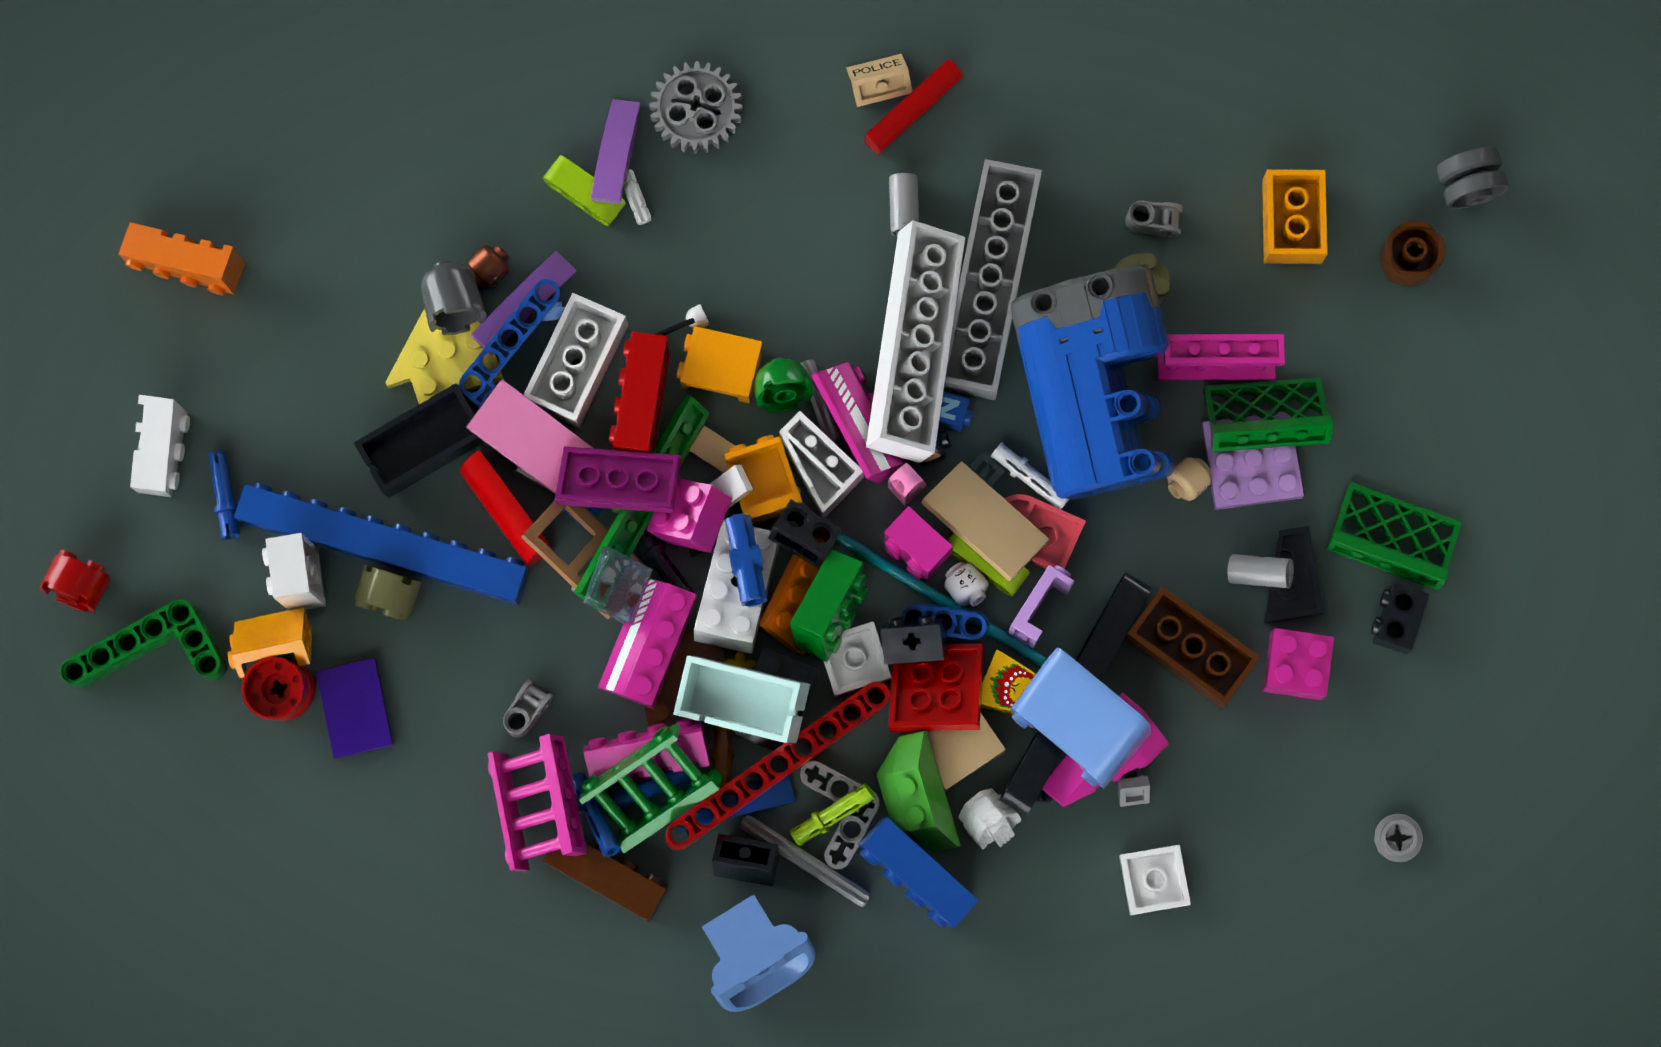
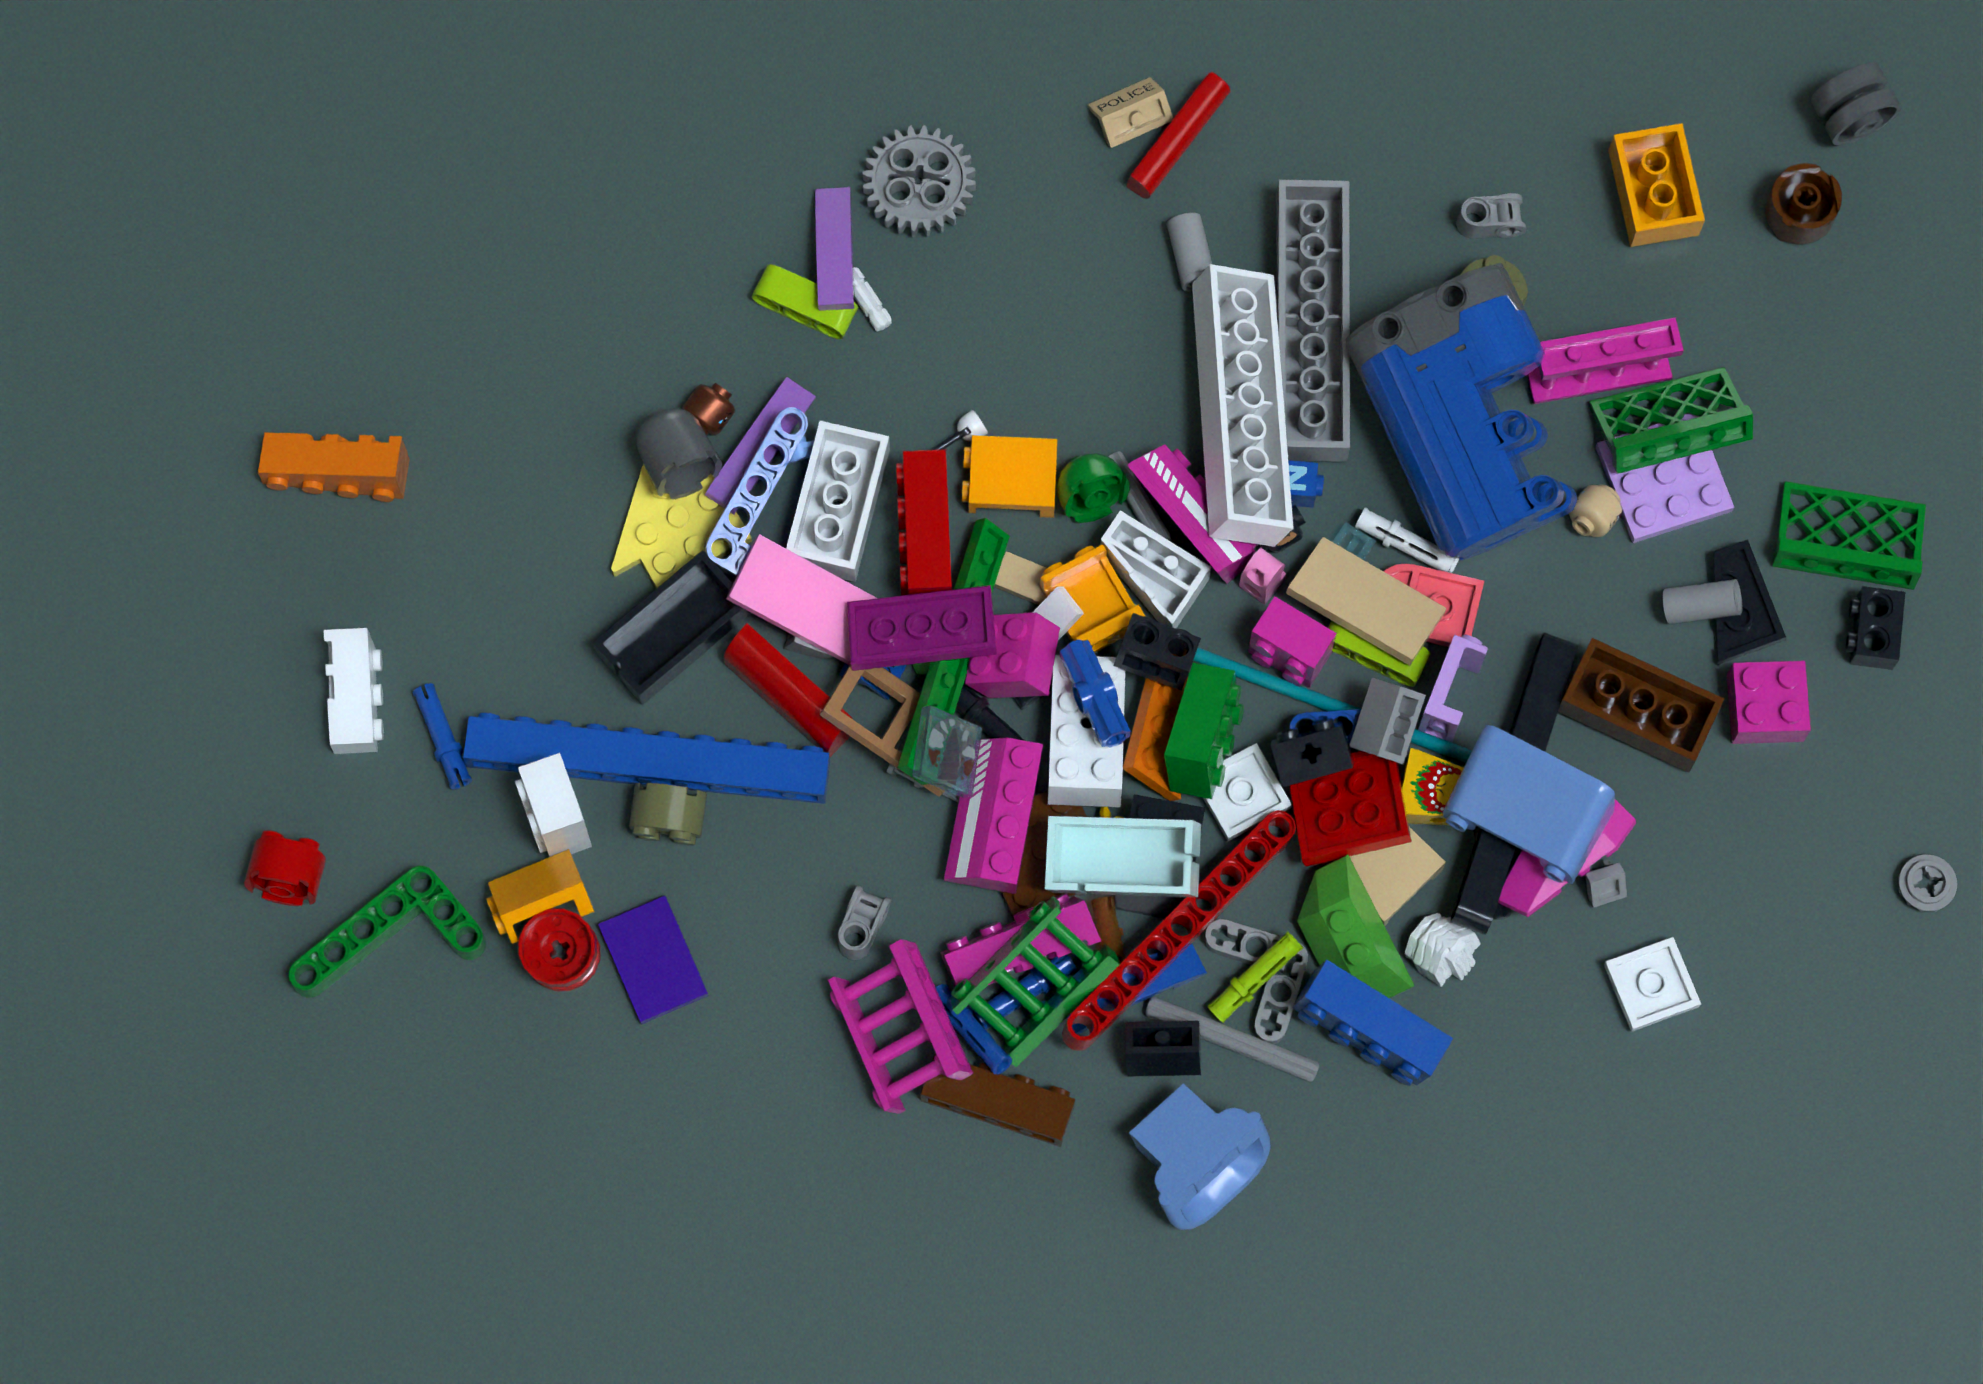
camera: 15 degrees left, 5 degrees down
(966, 584) = (1352, 678): white head -> none
(980, 626) = (1387, 720): none -> light grey brick

